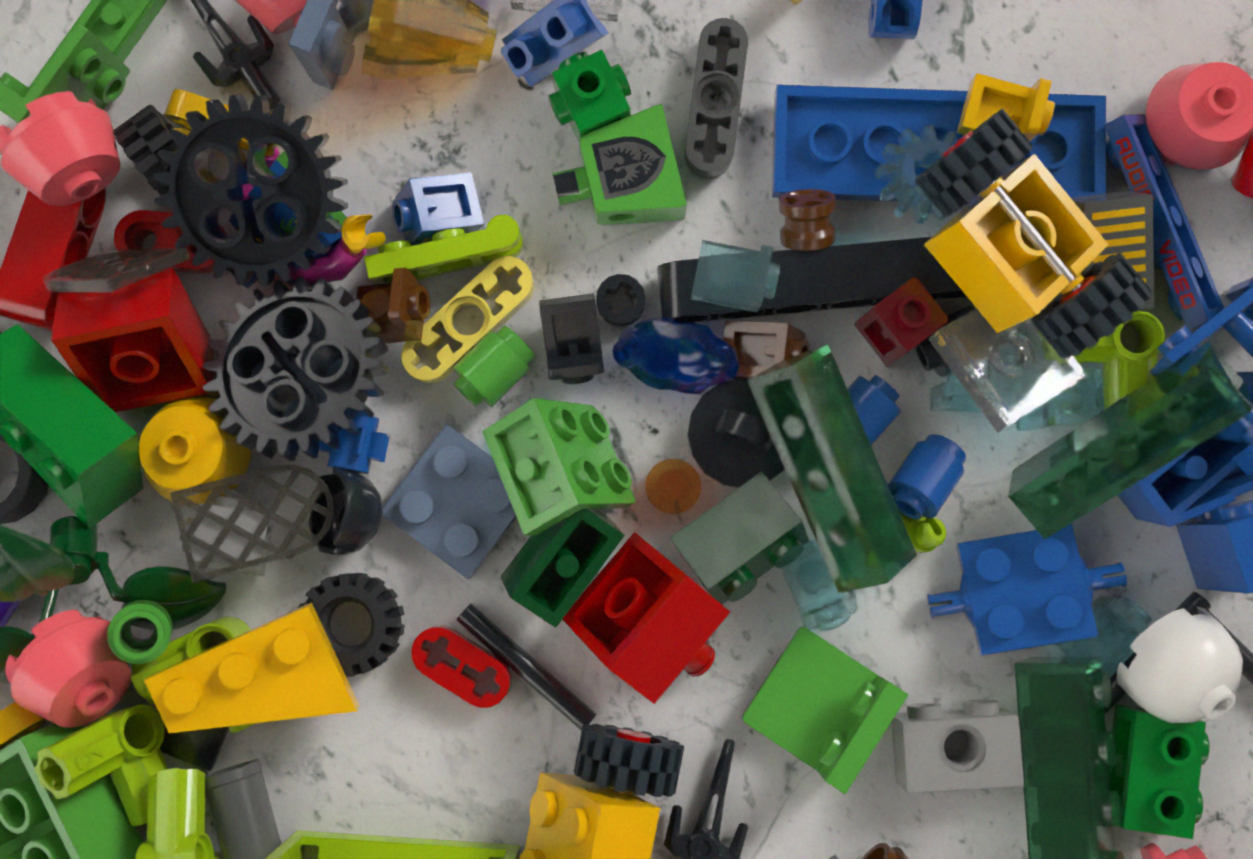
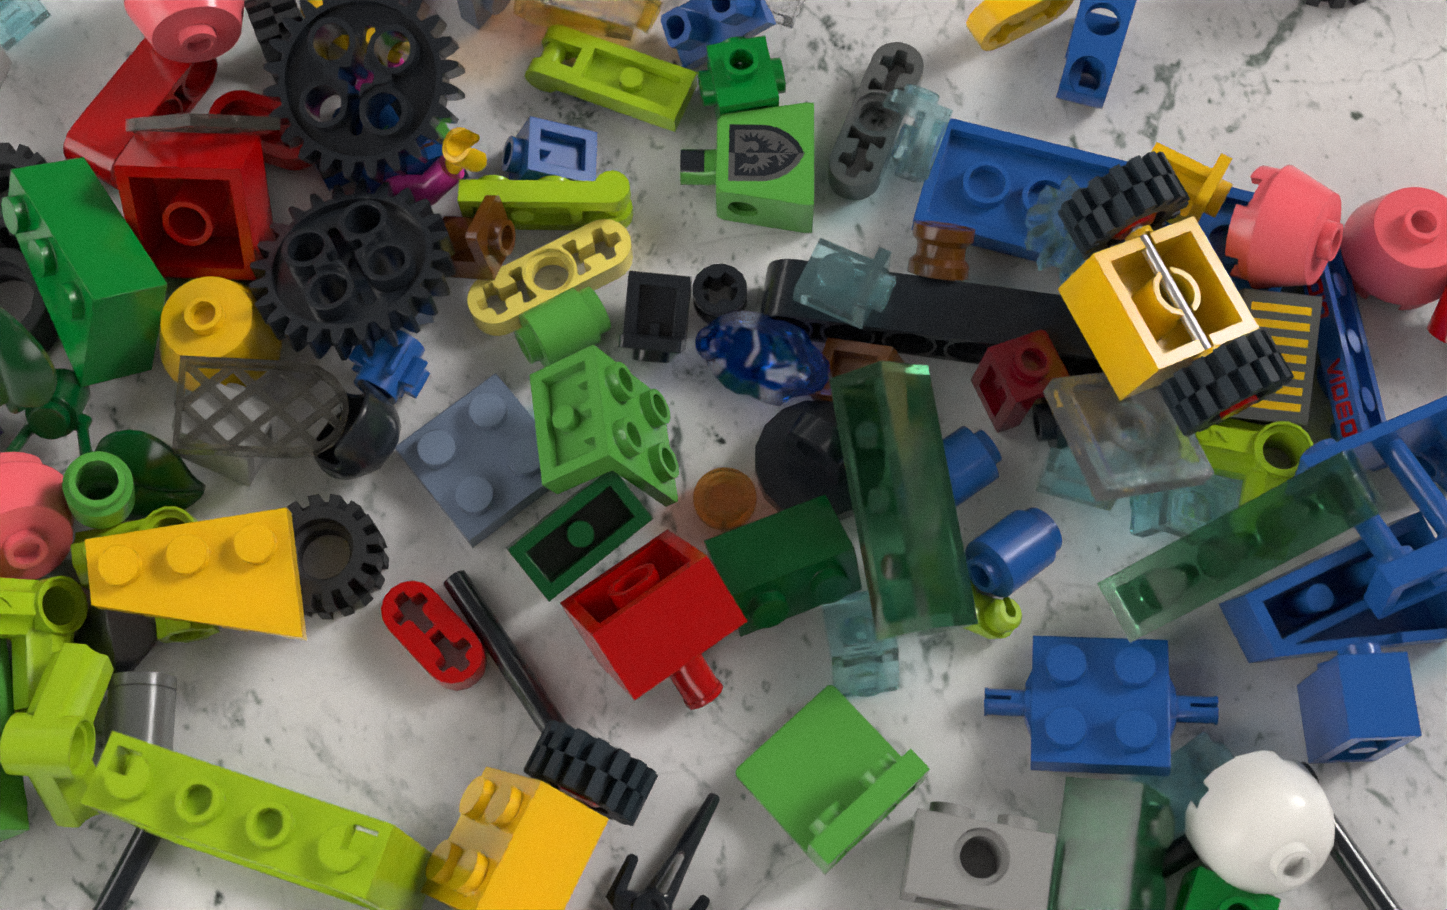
camera: 15 degrees right, 15 degrees down
(470, 113) = (613, 77): none -> lime plate
(765, 117) = (917, 144): none -> clear light blue bracket
(1110, 138) = (1284, 229): none -> coral cone

